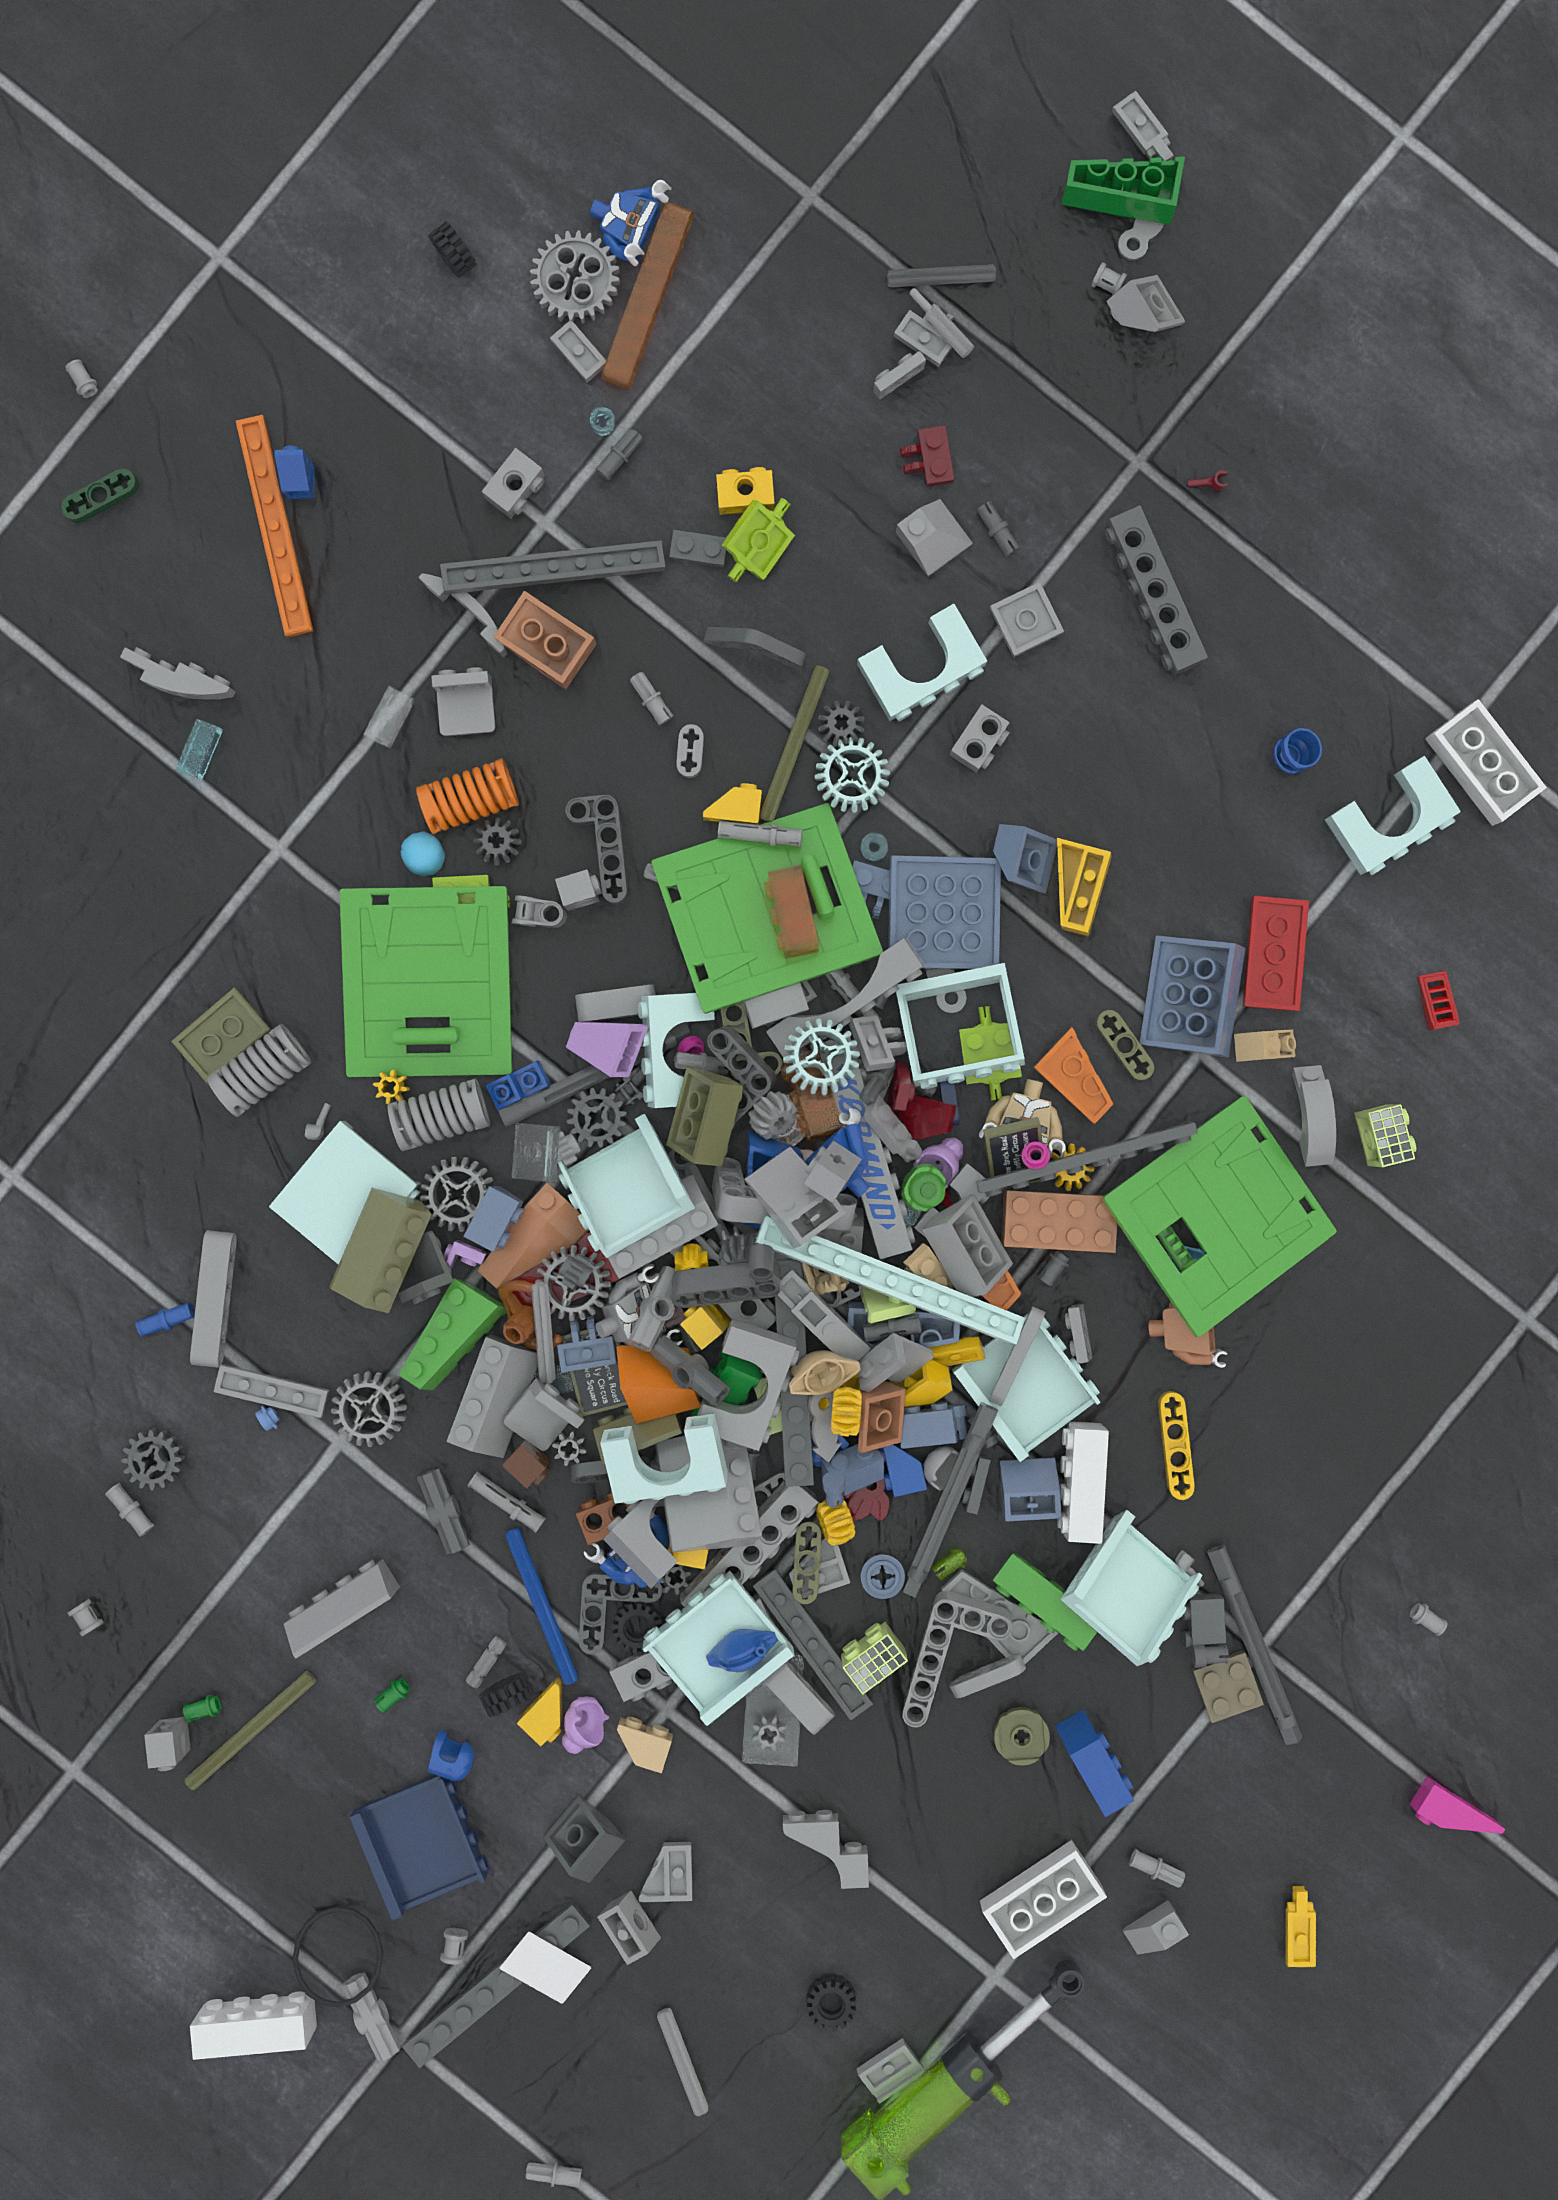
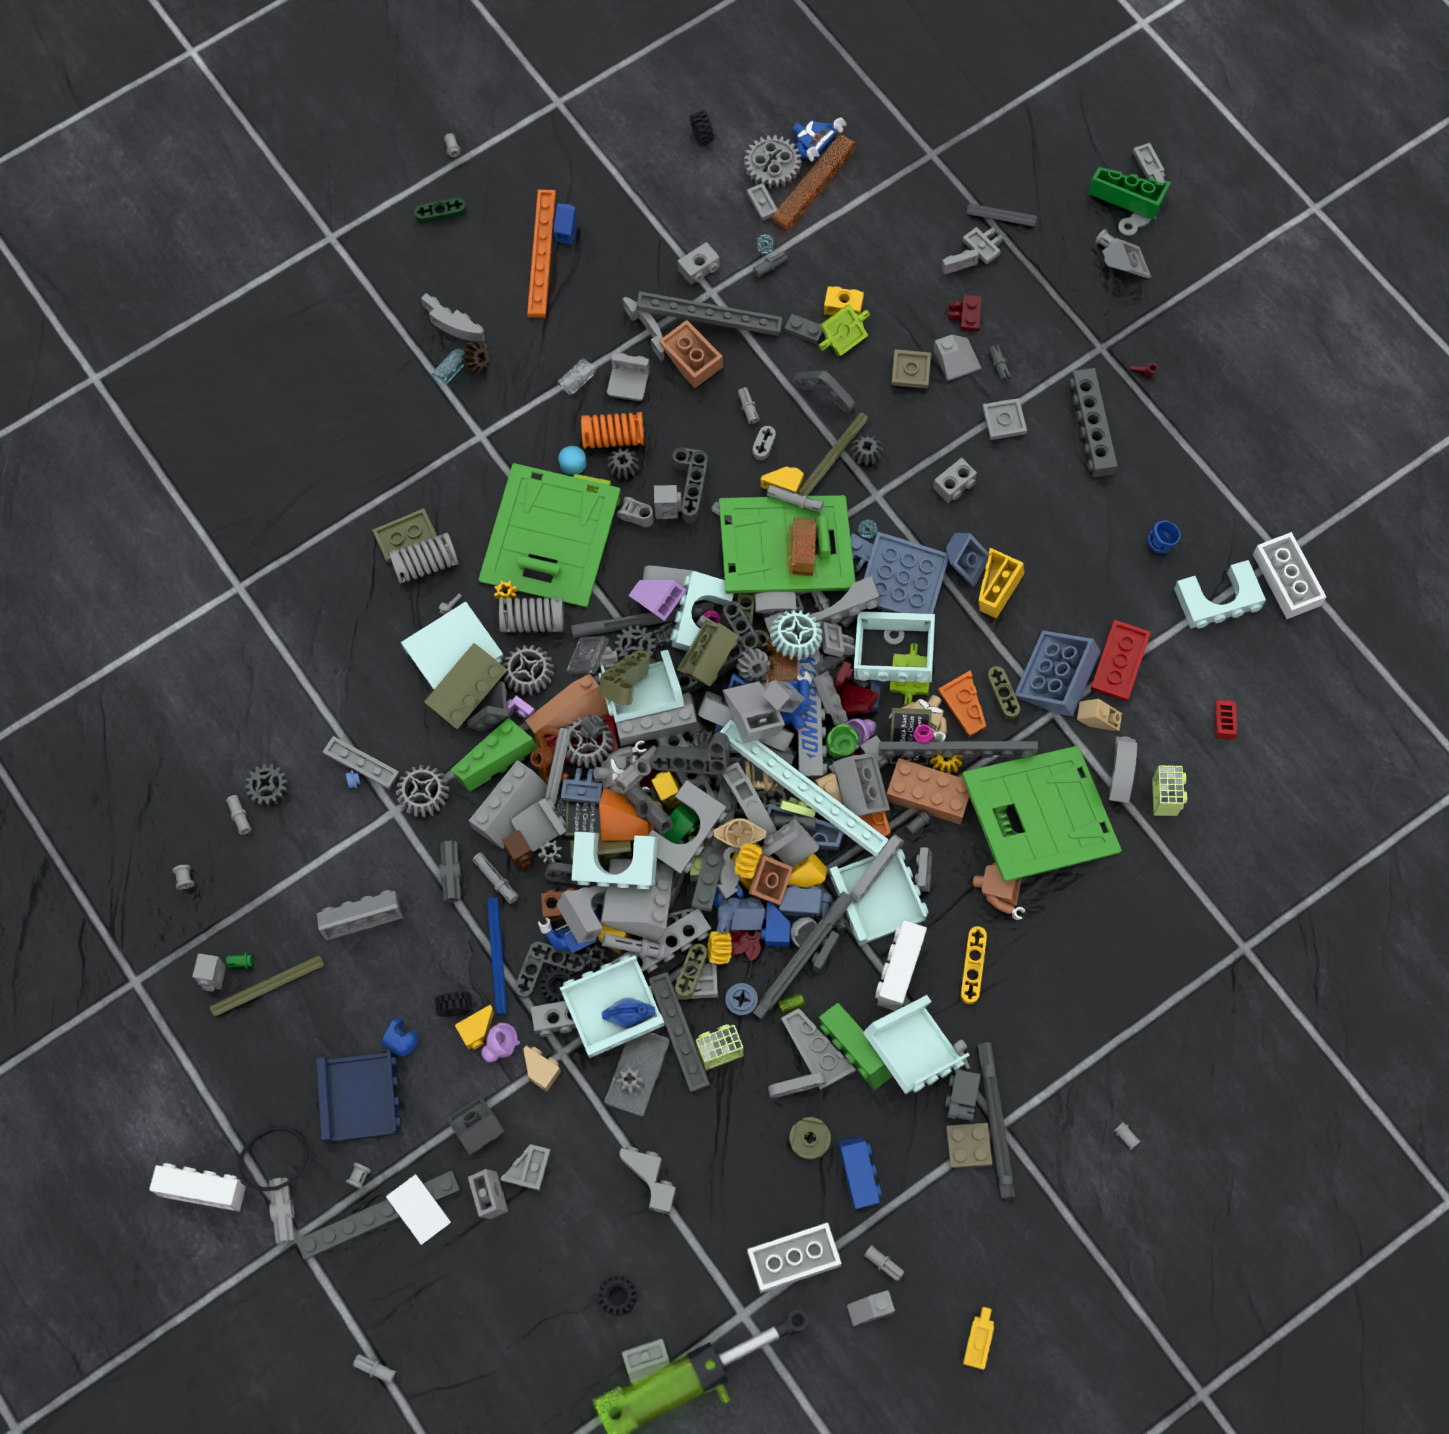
camera: 15 degrees right, 20 degrees down
(165, 1319) = (306, 699): blue pin -> none
(213, 1298) = (343, 694): light grey beam -> none
(232, 730) = (476, 356): none -> dark brown gear
(397, 1690) = (373, 987): green pin -> none
(486, 1662) = (446, 983): light grey axle -> none
(495, 1218) = (547, 685): sand blue slope -> none
(518, 1085) = (585, 614): blue slope -> none
(588, 1203) = (618, 681): none -> olive beam
(682, 2061) = (495, 1311): light grey axle -> none
(690, 1258) = (671, 740): yellow gear -> none
(735, 1562) = (641, 947): none -> light grey pin
(800, 1697) = (658, 1061): light grey beam -> none
(860, 785) = (869, 472): light aqua gear -> none
(871, 574) = (911, 369): none -> dark tan plate
(899, 695) = (911, 443): light aqua arch -> none
(938, 1646) = (769, 1055): light grey beam -> none
(944, 325) = (995, 239): light grey axle -> none
(965, 1351) = (839, 857): yellow hinge -> none
(1030, 1489) = (861, 965): sand blue slope -> none
(1447, 1810) = (1110, 1277): dark pink slope -> none

